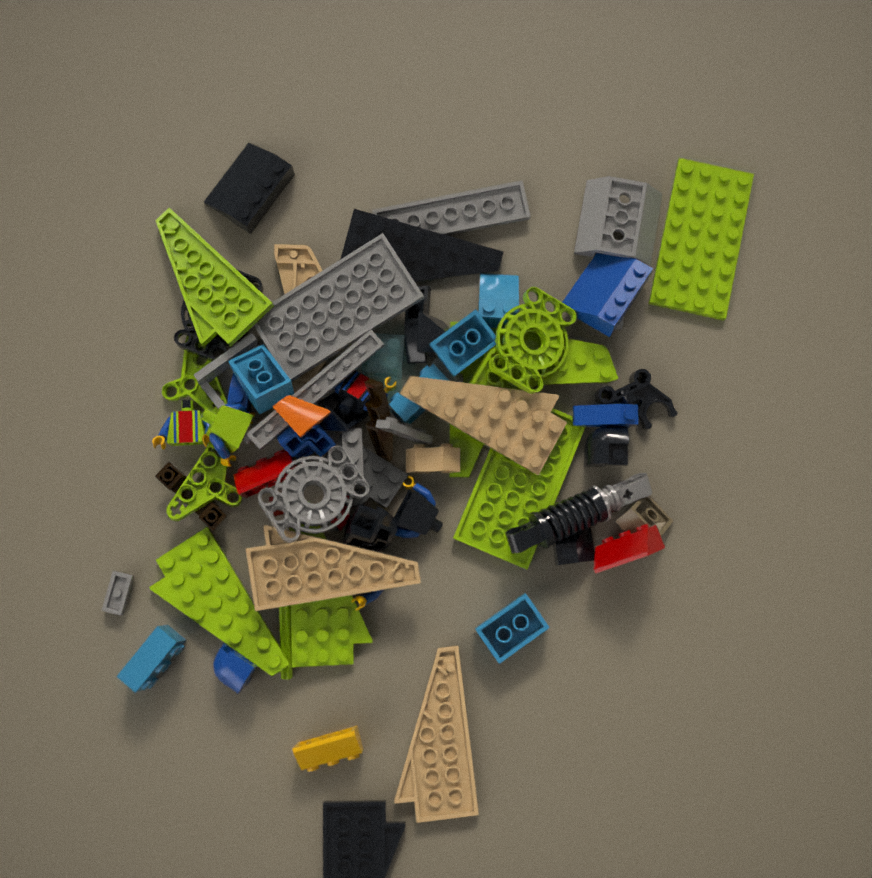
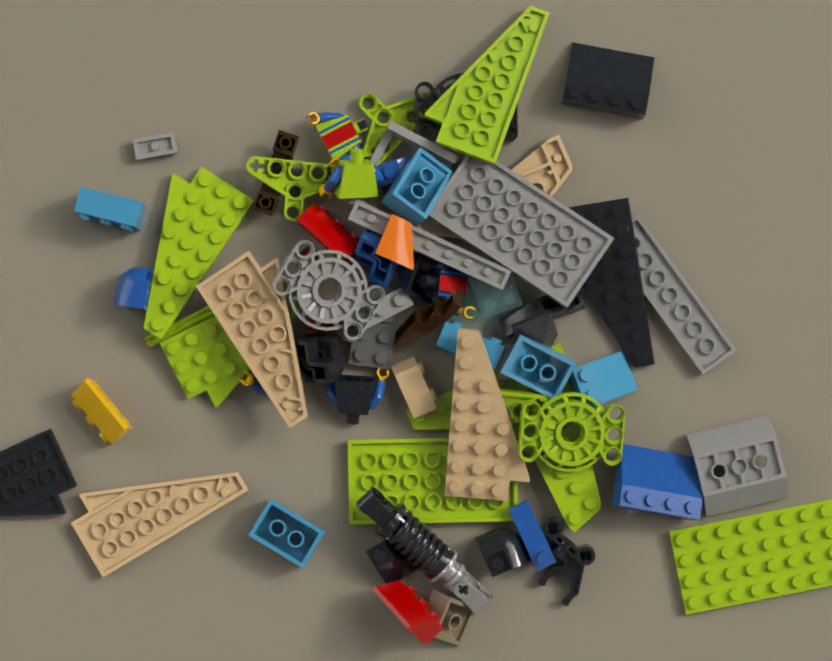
camera: 65 degrees right, 5 degrees up
(404, 430) = (429, 347): light grey plate -> none

